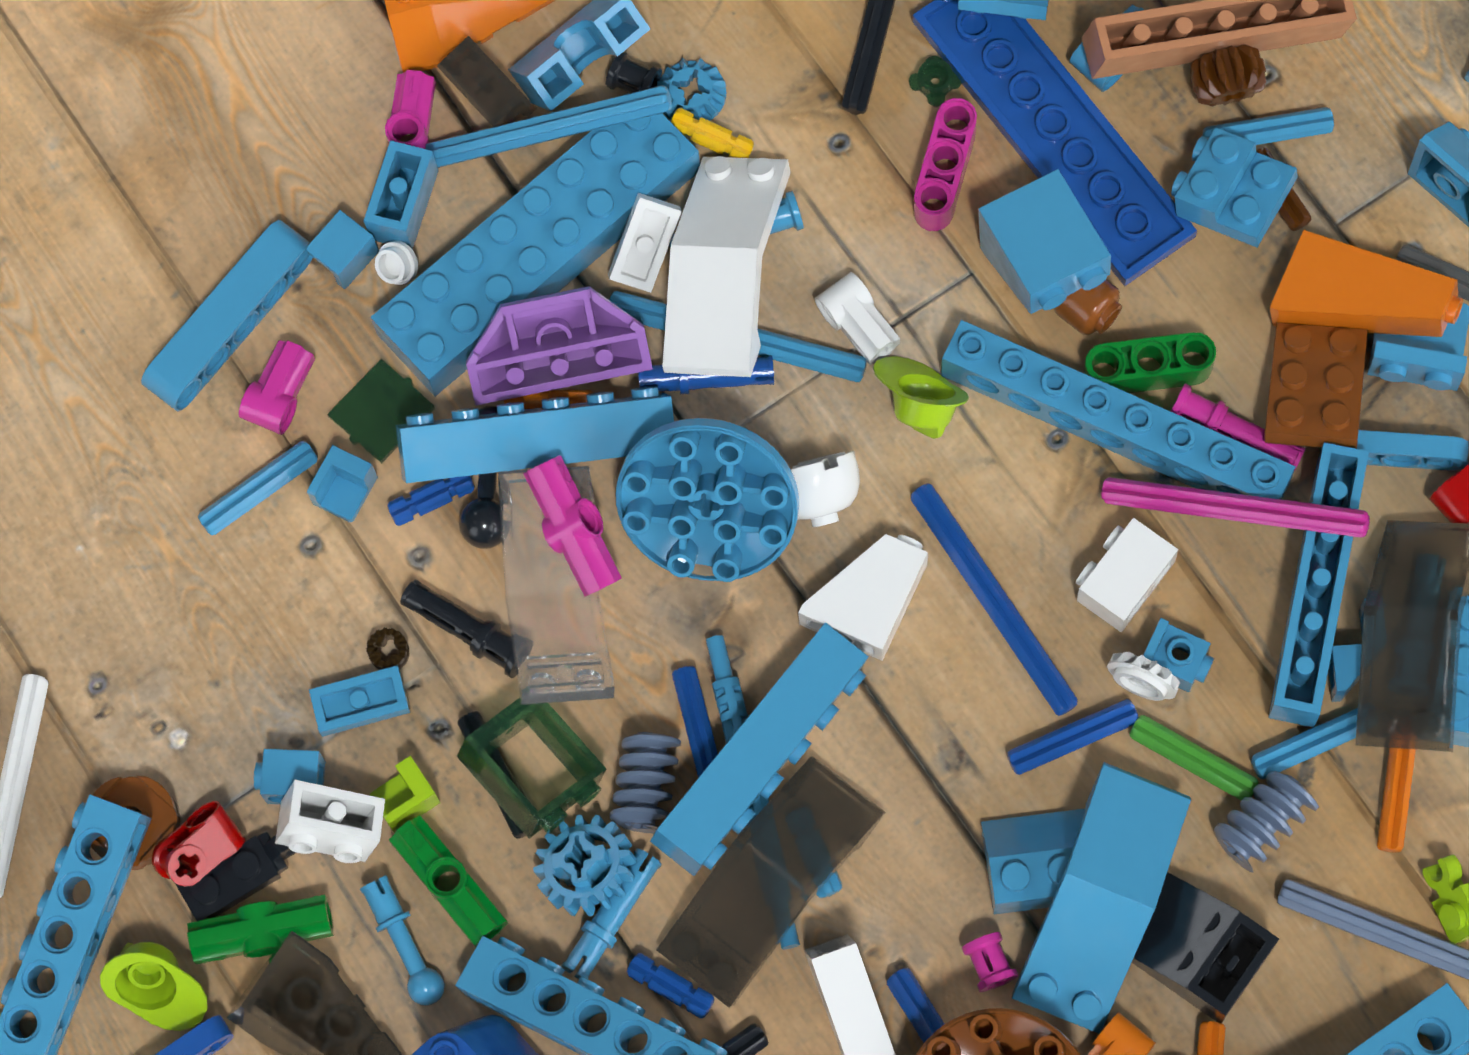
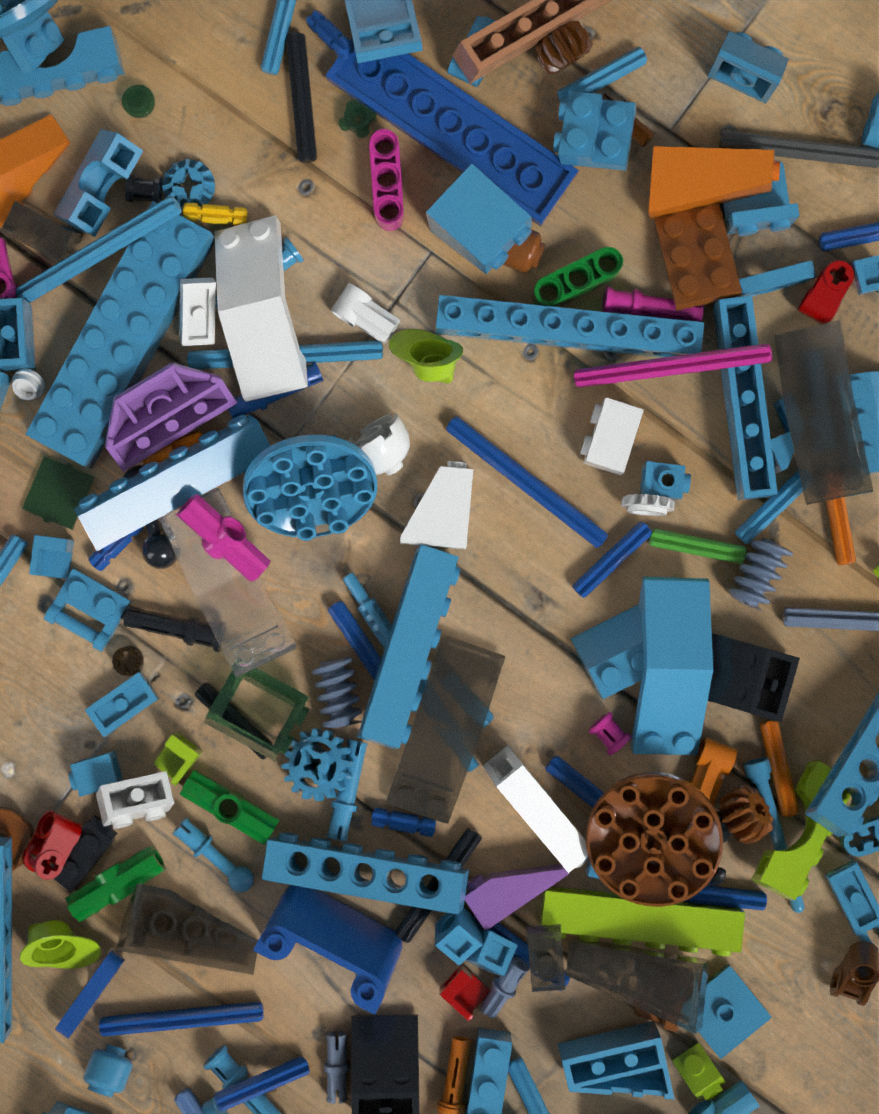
camera: 30 degrees left, 15 degrees up
(372, 557) = (92, 599): none -> dark azure plate

